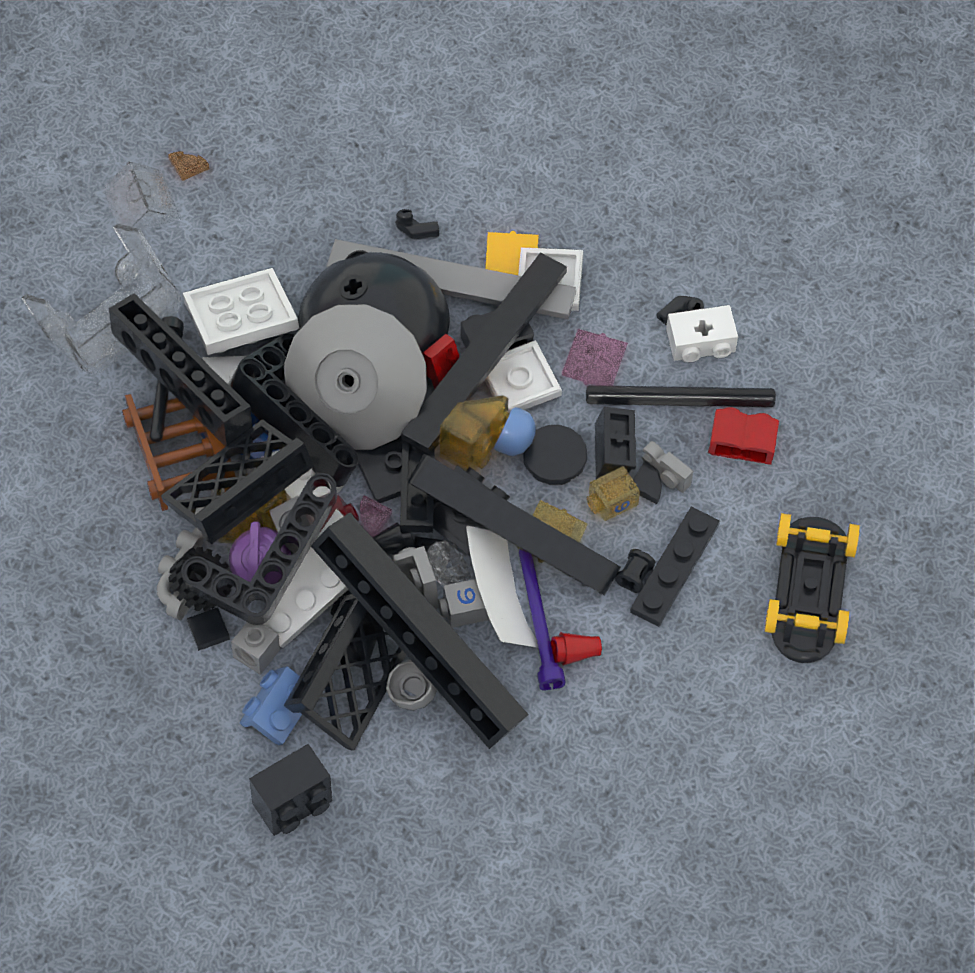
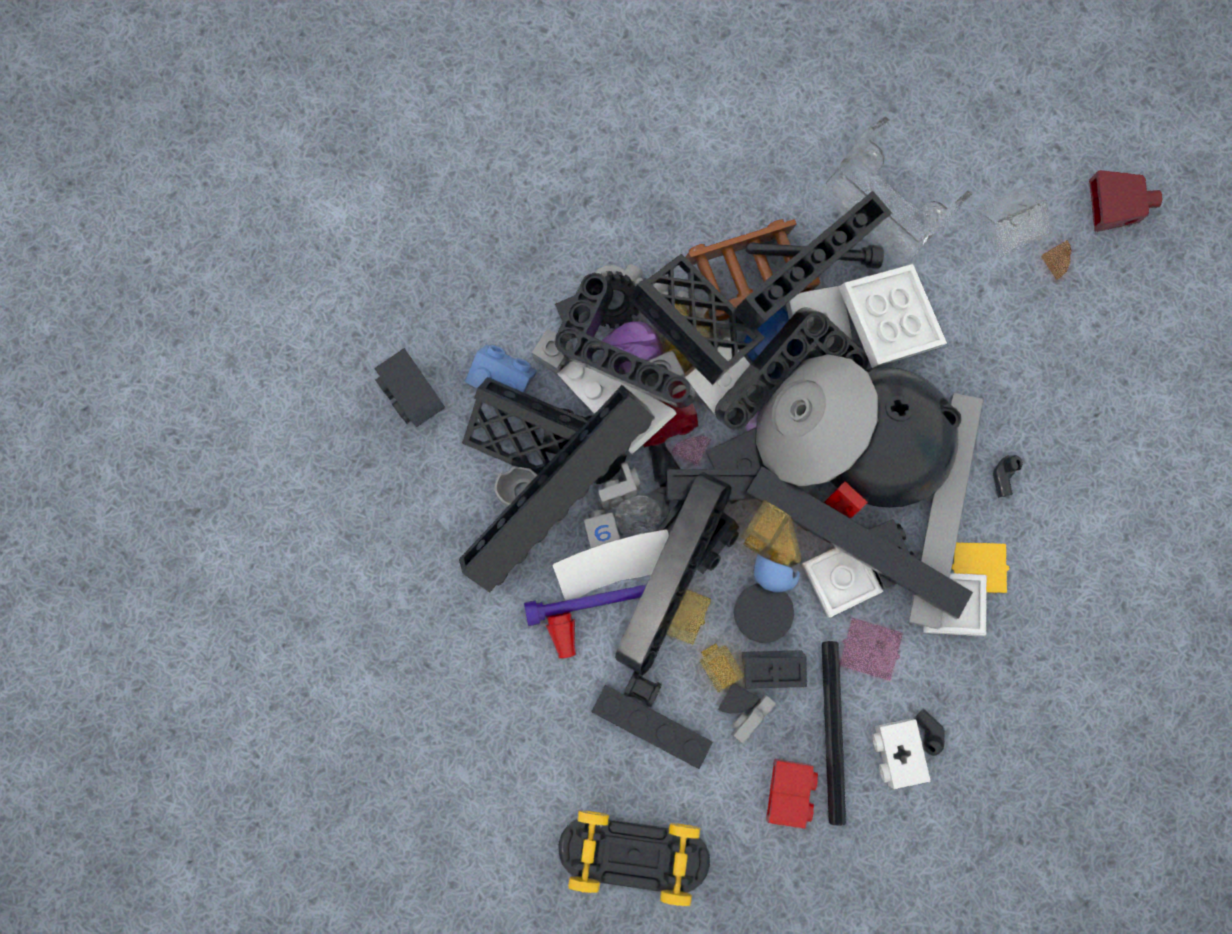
camera: 90 degrees right, 20 degrees up
(129, 103) = (1120, 199): none -> dark red torso

